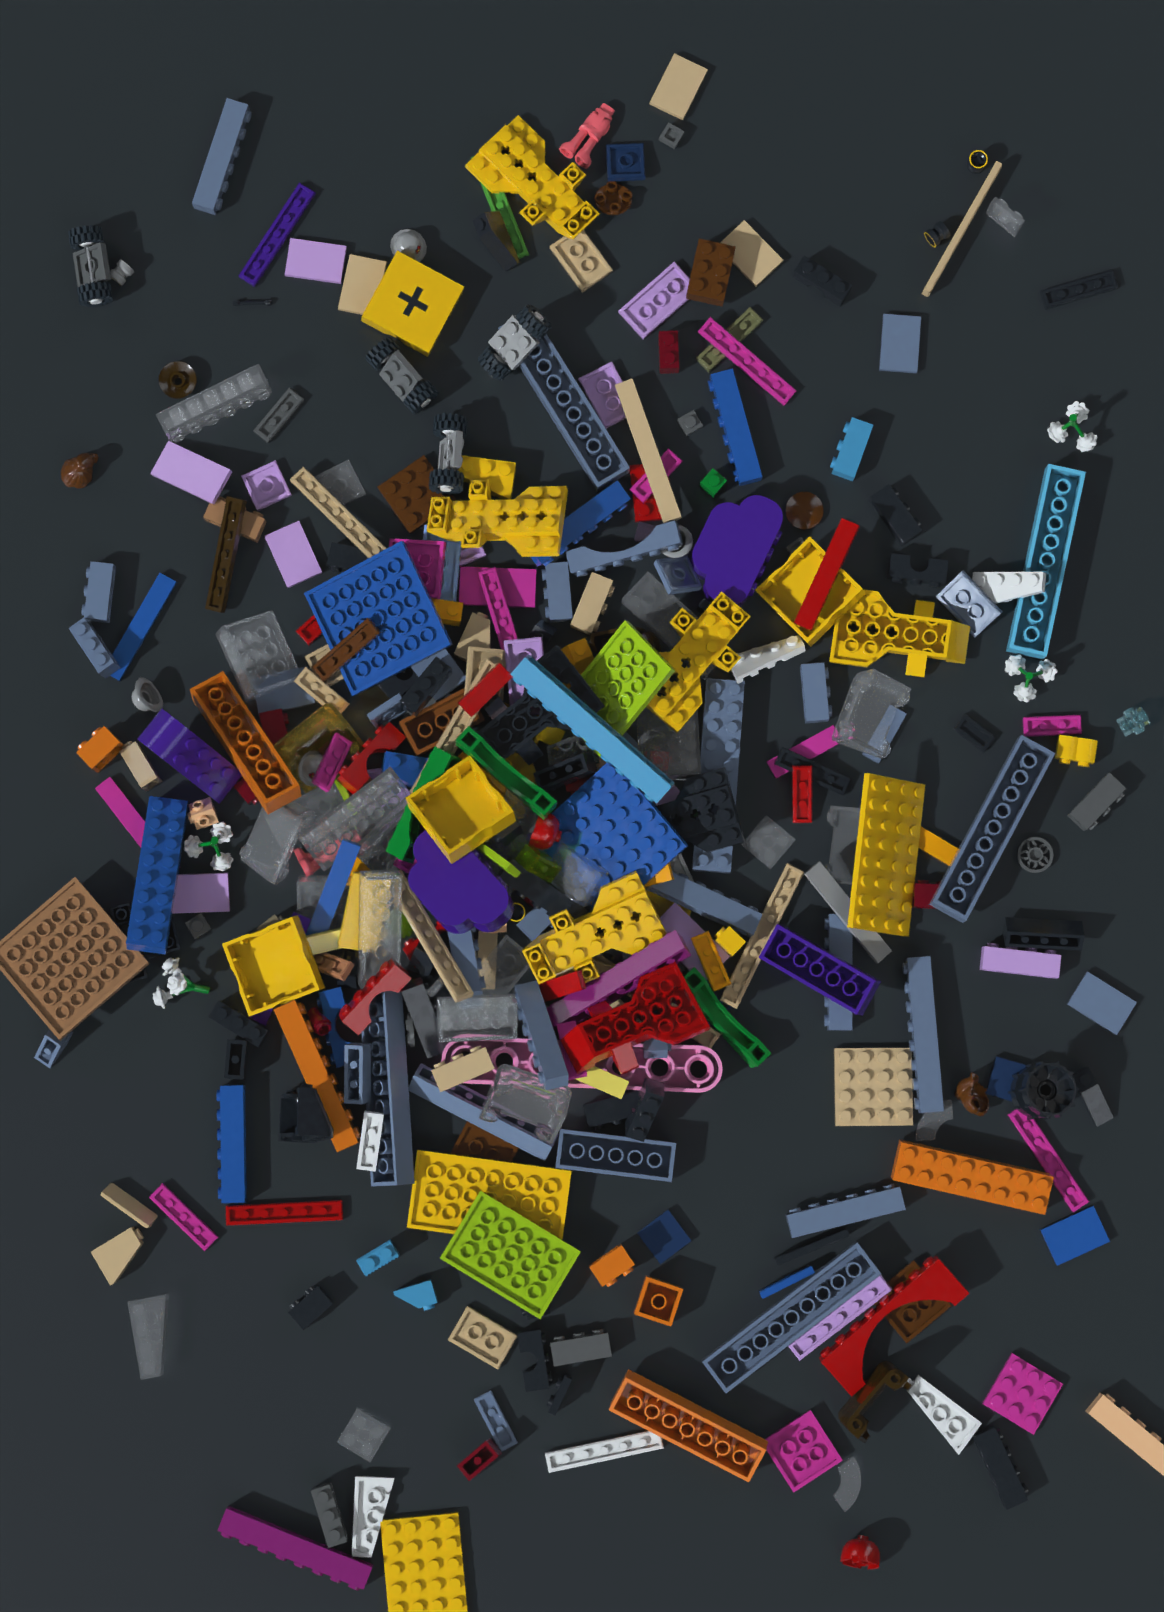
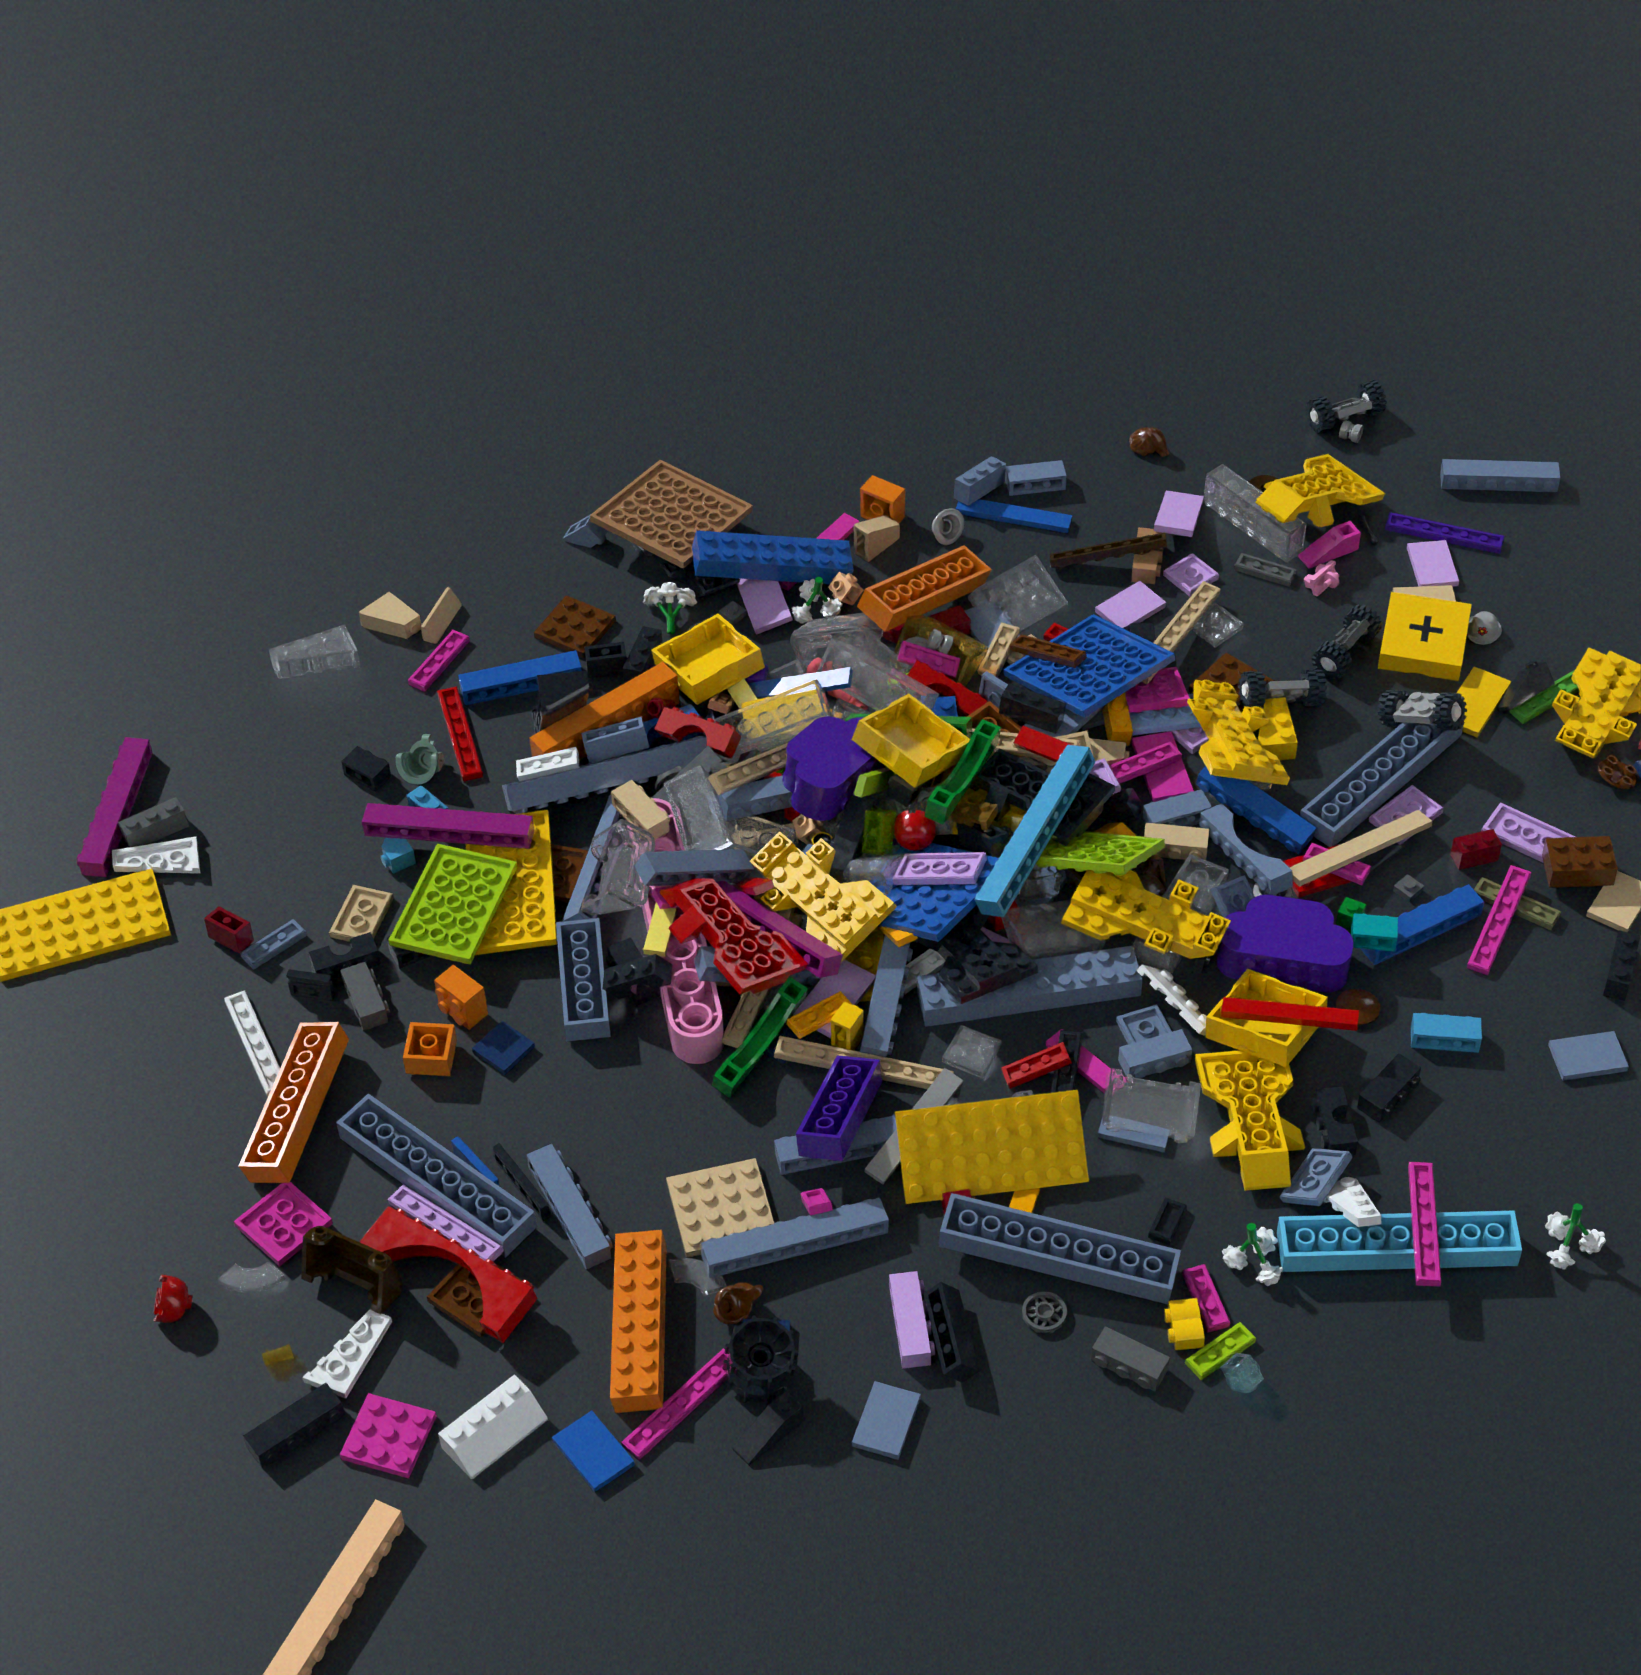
camera: 80 degrees right, 35 degrees down
(174, 1079) = (574, 626): none -> reddish brown plate
(190, 755) = (899, 534): dark purple brick -> none
(202, 317) = (1322, 485): none -> yellow piece
(272, 347) = (1333, 544): none -> dark pink slope
(311, 364) = (1325, 577): none -> bright pink hips
(317, 748) = (939, 641): none -> light grey wheel
(322, 1256) = (420, 762): none -> sand green helmet
(363, 1435) = (241, 839): clear plate -> none
(419, 1244) = (448, 825): none -> magenta brick
(493, 285) = (1482, 695): none -> yellow tile
(543, 770) = (975, 813): none -> pearl gold wing
(581, 260) = (1540, 763): tan tile -> none
(599, 821) = (939, 868): none -> lavender tile
(749, 472) = (1374, 932): none -> teal brick
(781, 692) = (1143, 1024): none -> sand blue tile
(895, 1009) = (816, 1201): none -> dark pink tile
(929, 1472) = (277, 1355): none -> clear yellow pin
(1039, 1310) = (492, 1427): none -> white slope
(1045, 538) = (1424, 1224): none -> dark pink tile
(1101, 729) = (1220, 1350): none -> lime tile

